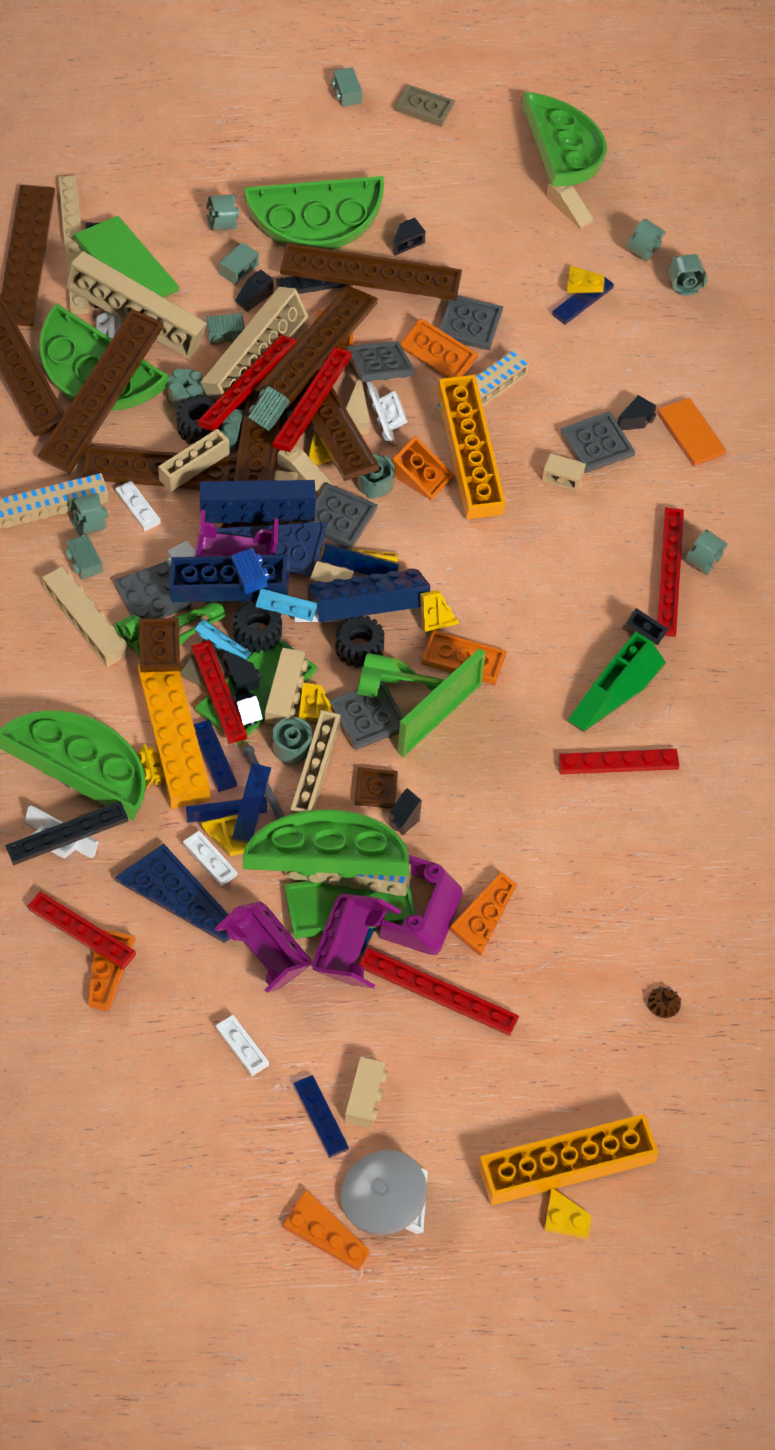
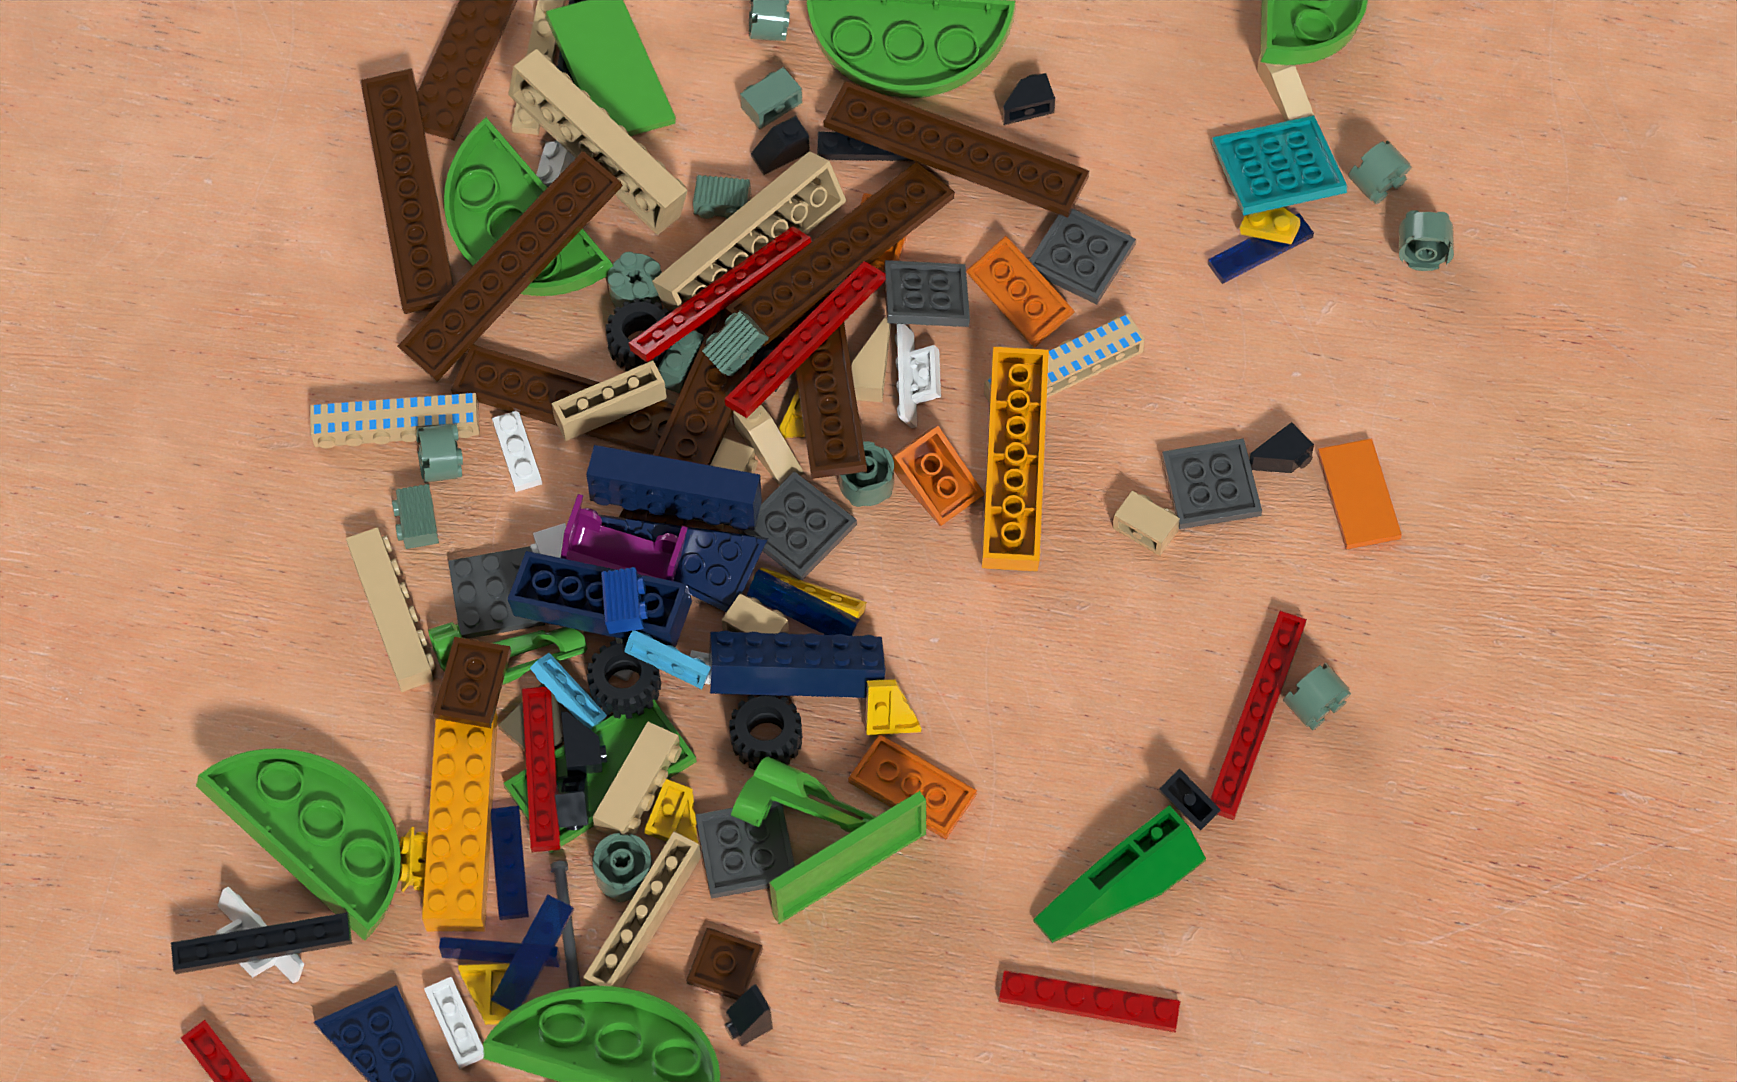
camera: 20 degrees right, 5 degrees up
(580, 247) = (1279, 165): none -> teal plate

